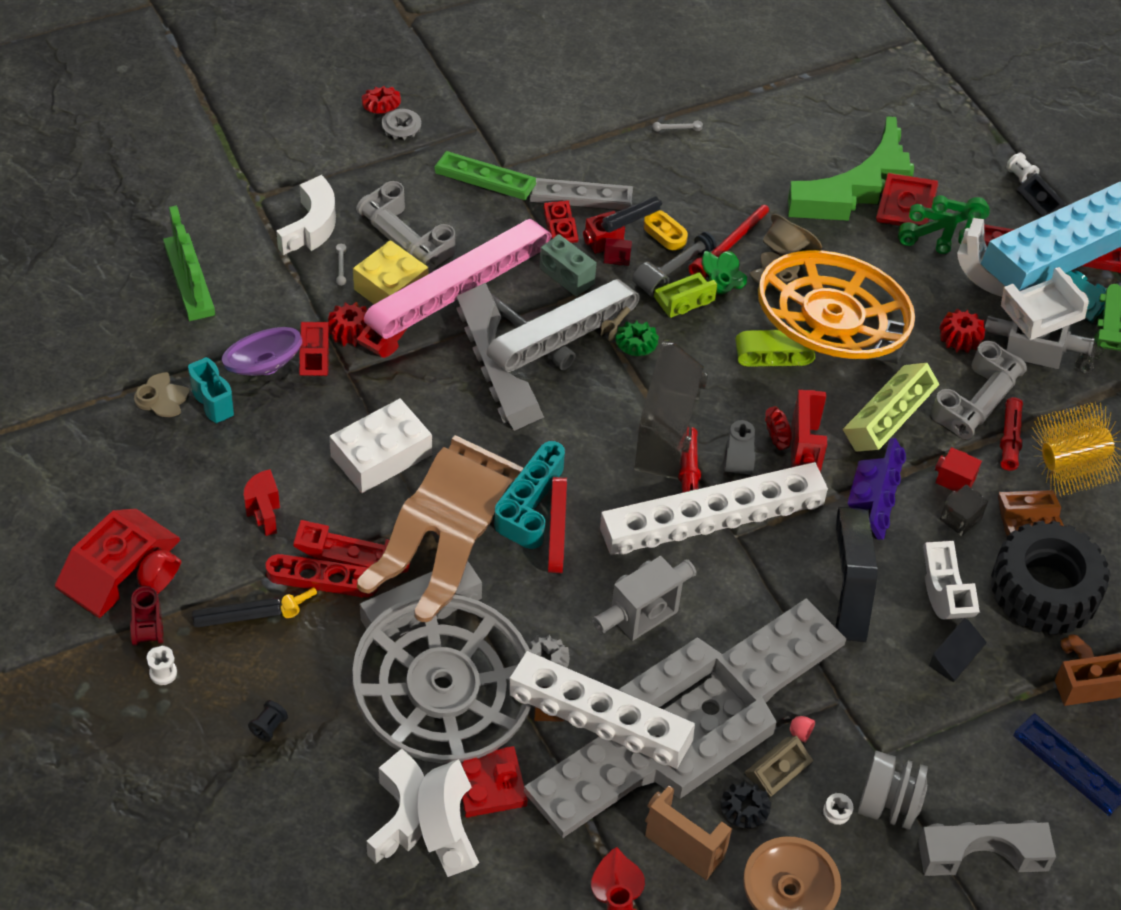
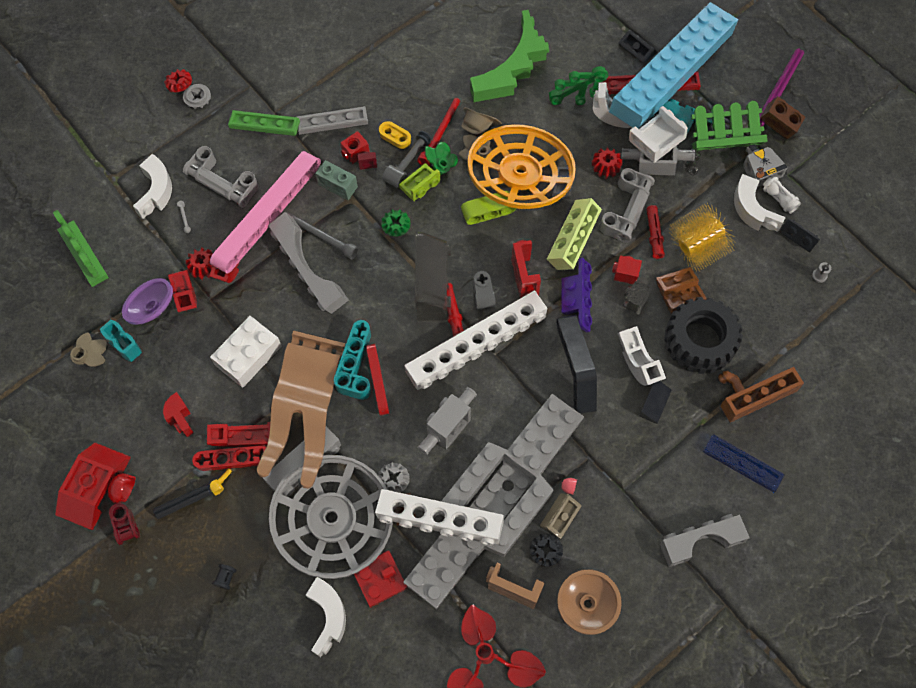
camera: 10 degrees left, 15 degrees up
(161, 665) = (144, 561): white bush -> none
(387, 272) = (218, 219): light yellow piece -> none
(441, 819) = (353, 617): white arch -> none
(560, 220) = (323, 146): red slope -> none
(561, 325) = (344, 230): light grey beam -> none
(611, 325) = (377, 217): dark tan hand -> none
(631, 214) = (370, 131): black axle -> none
(697, 126) = (397, 46): light grey hinge -> none
(778, 428) = (504, 269): red gear -> none
(833, 815) = (606, 530): white bush -> none
(893, 790) = (638, 519): light grey wheel -> none
(902, 193) = (548, 70): red hinge -> none
(1021, 162) = (614, 25): white bush -> none

